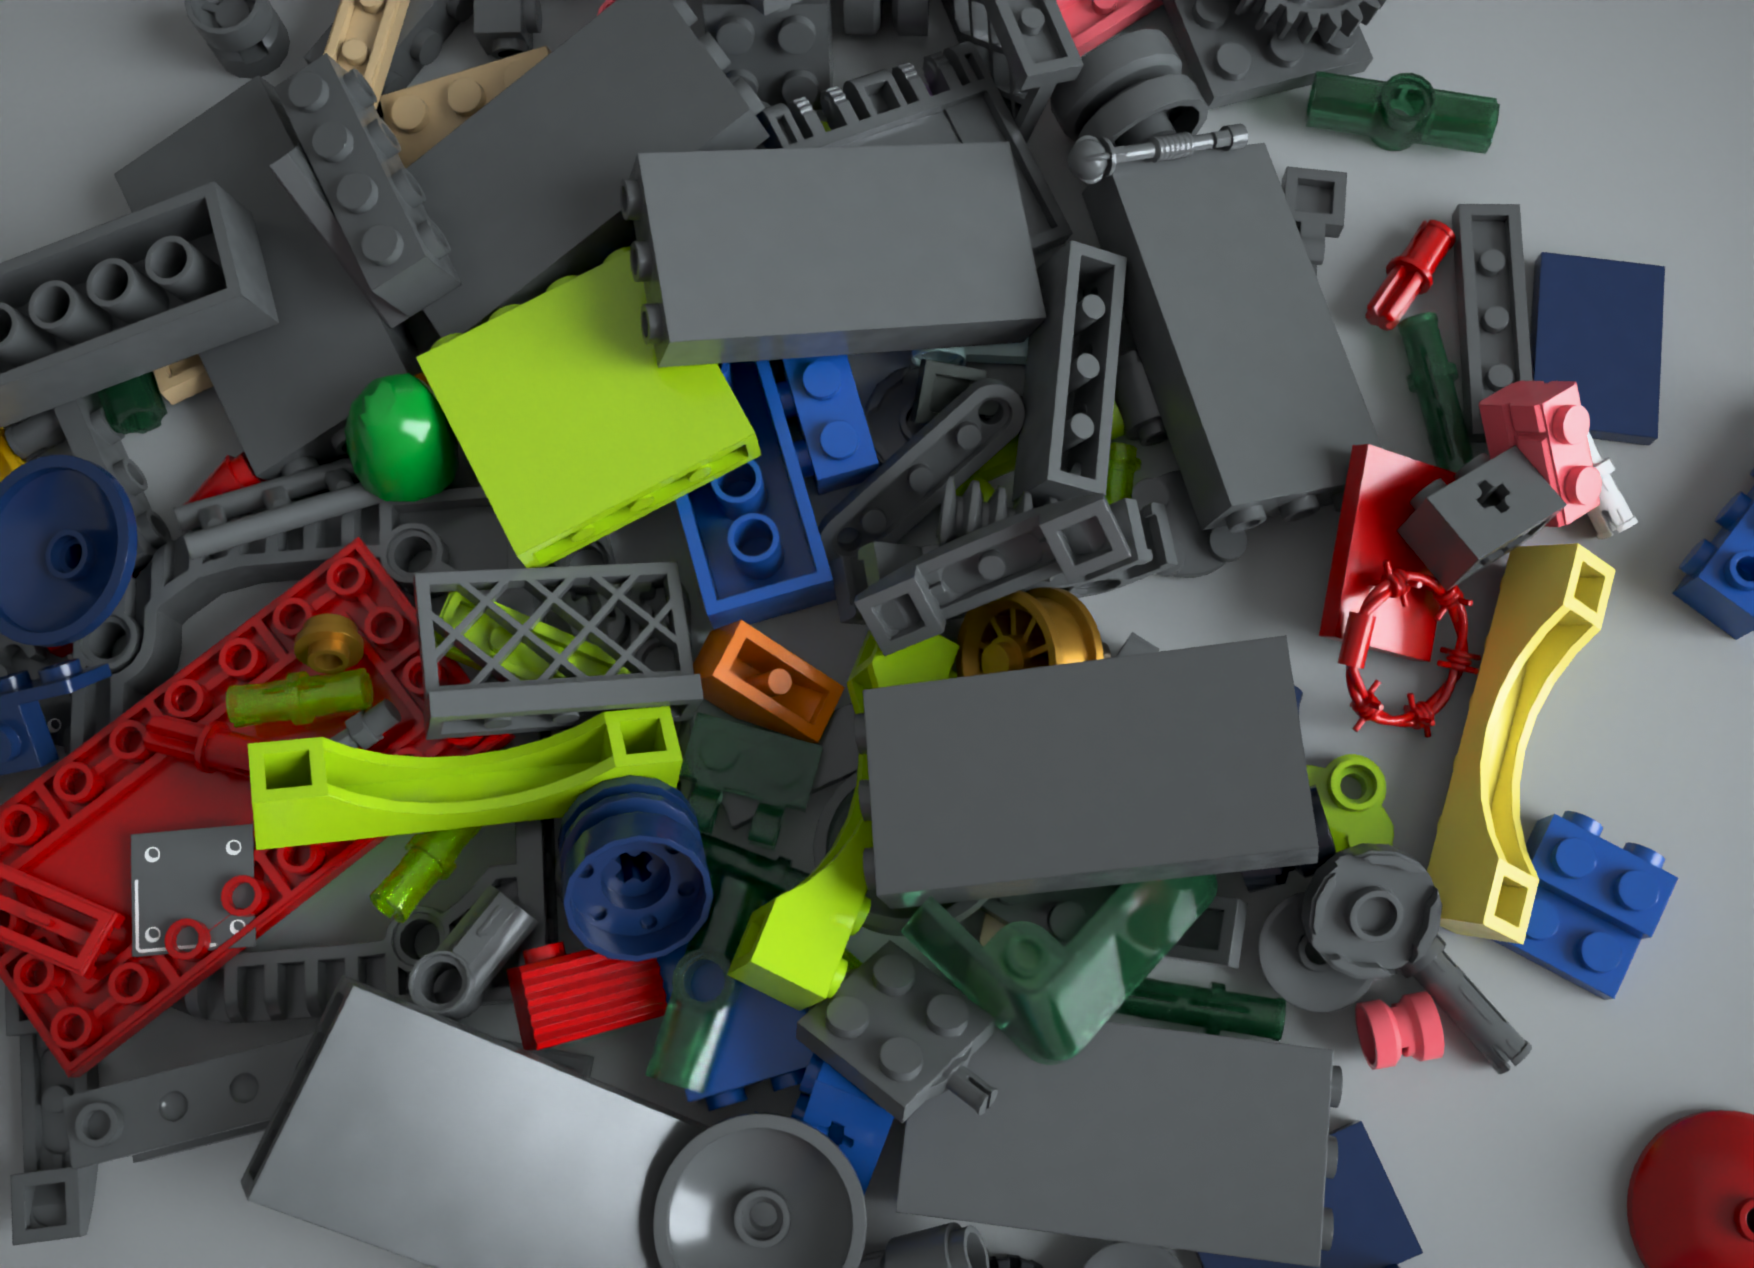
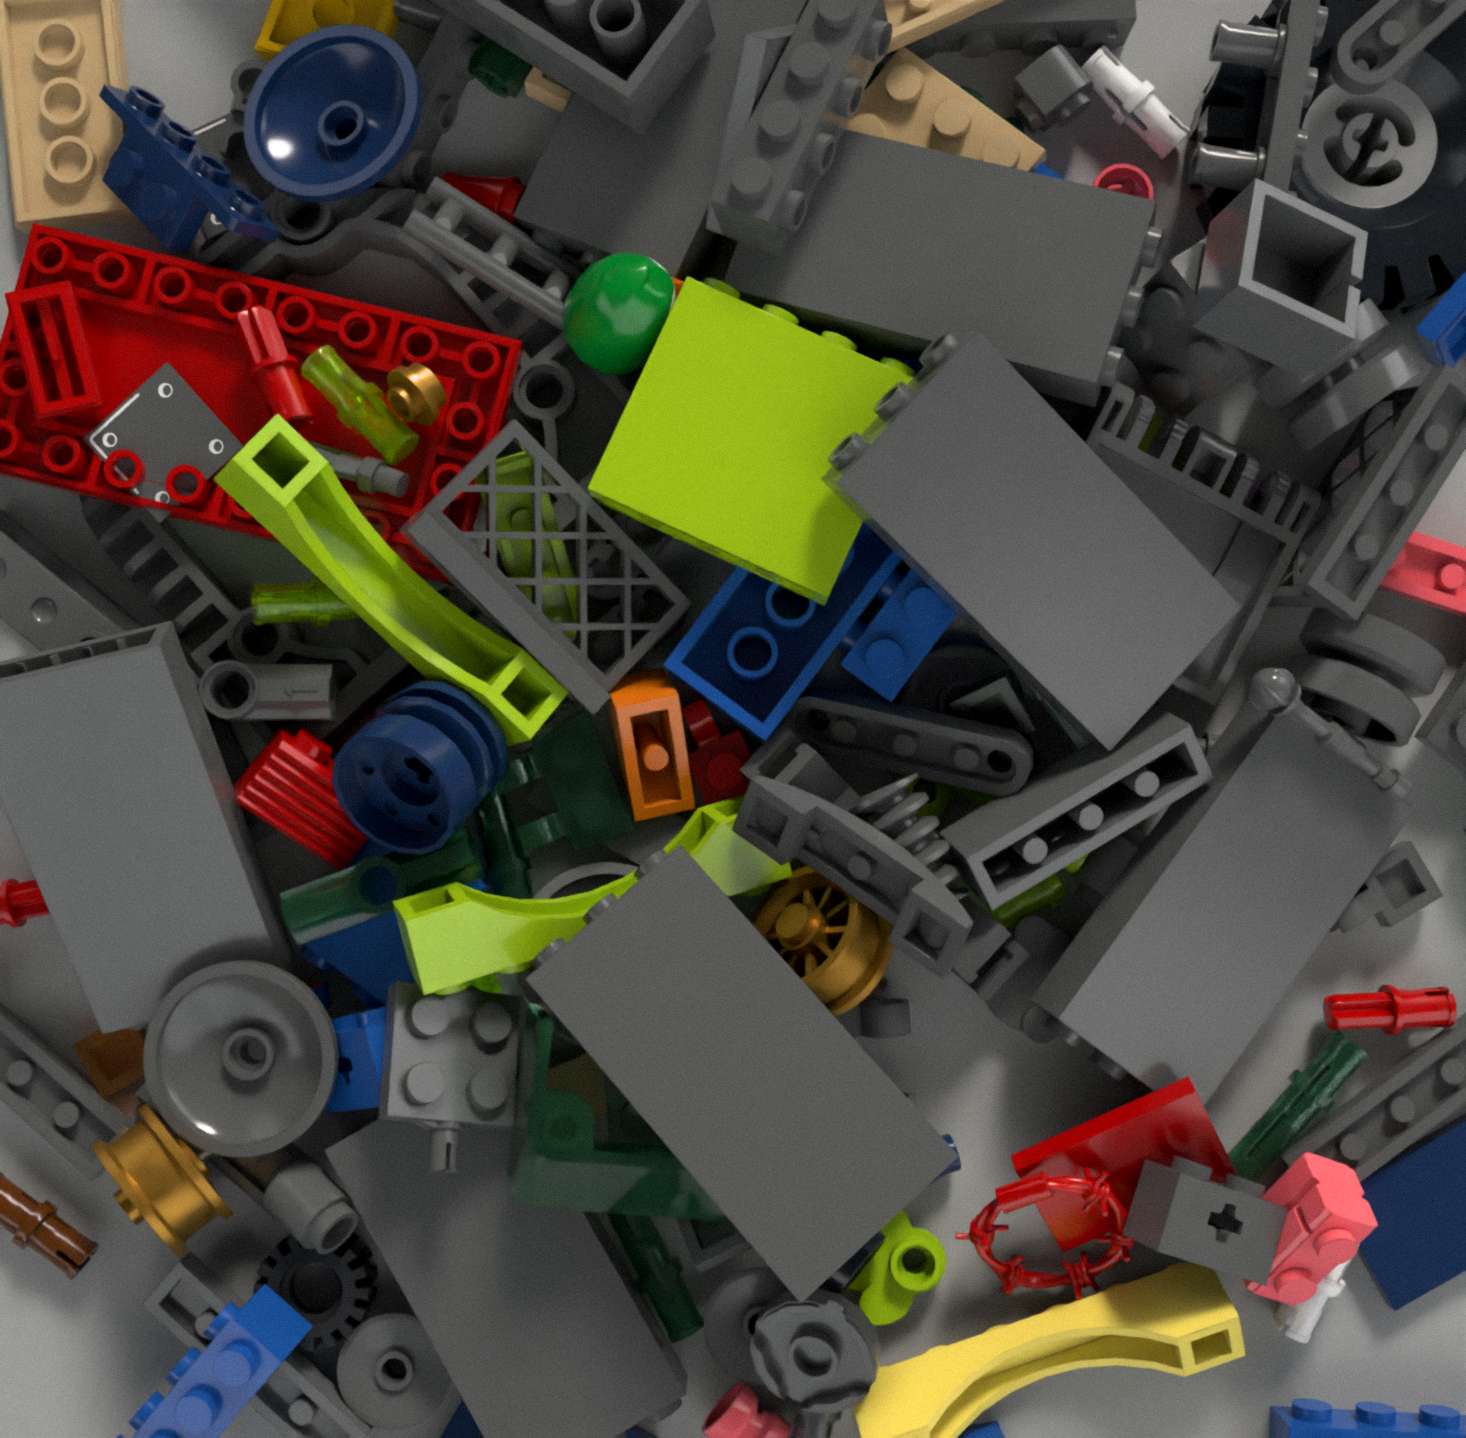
camera: 50 degrees right, 10 degrees up
(820, 642) = (718, 759): none -> red plate

